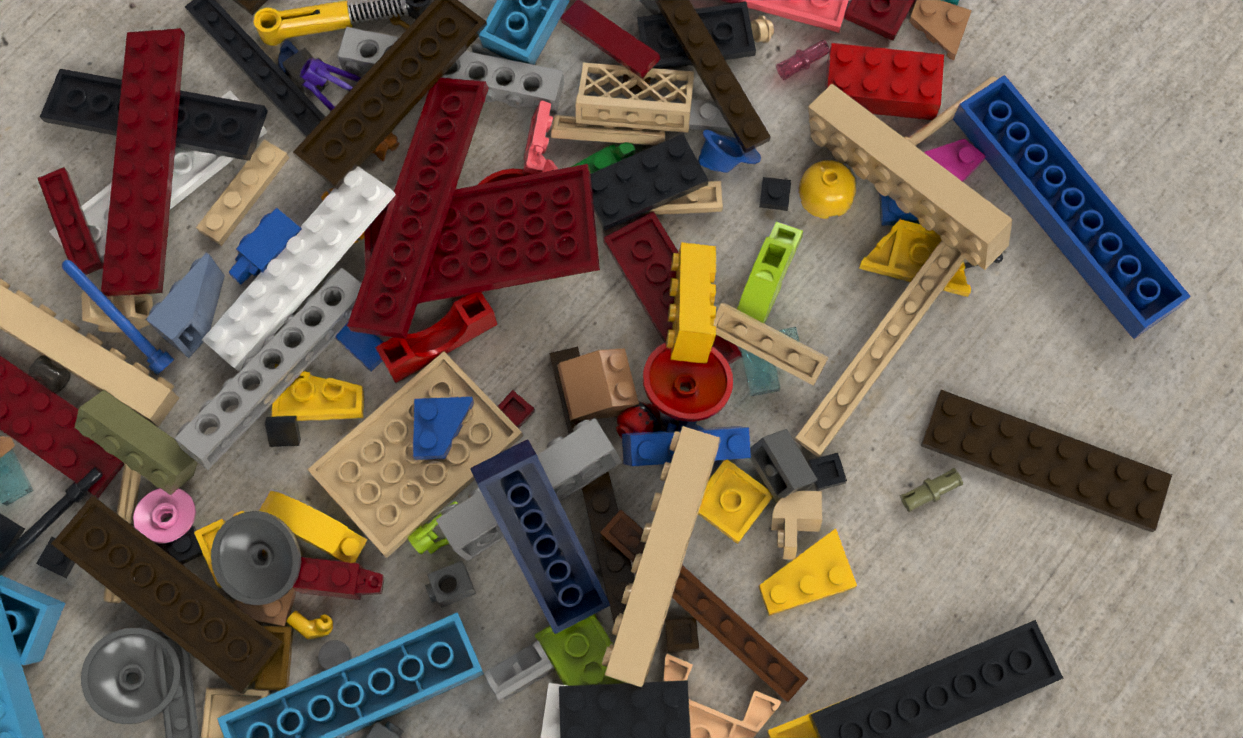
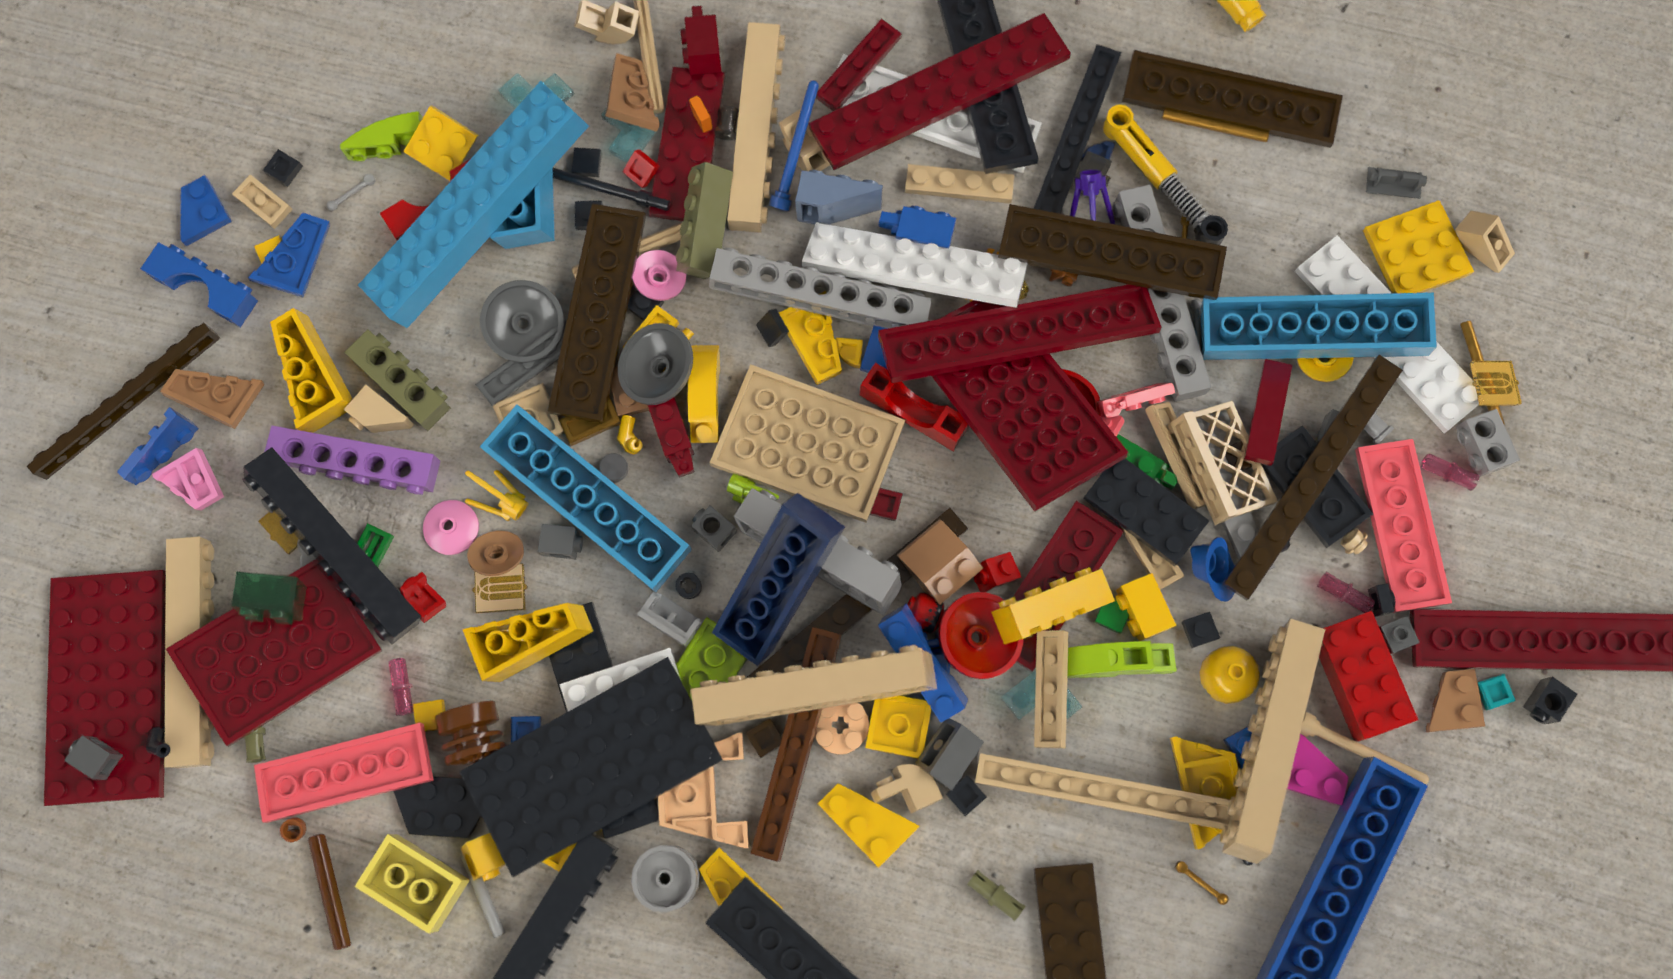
camera: 65 degrees right, 5 degrees up
(25, 391) = (700, 113): none -> orange tile
(43, 480) = (640, 168): none -> red plate
(348, 370) = (850, 351): none -> yellow tile
(437, 424) = (838, 448): blue wing -> none
(491, 628) = (695, 580): none -> black bush
(633, 337) = (997, 572): none -> red bracket
(721, 551) = (850, 738): none -> light nougat plate
(727, 261) = (1112, 617): none -> green tile
(733, 228) = (1145, 607): none -> yellow brick
(823, 31) = (1383, 599): none -> black plate
(862, 32) = (1399, 635): none -> dark grey brick
(979, 315) = (1182, 867): none -> pearl gold hinge

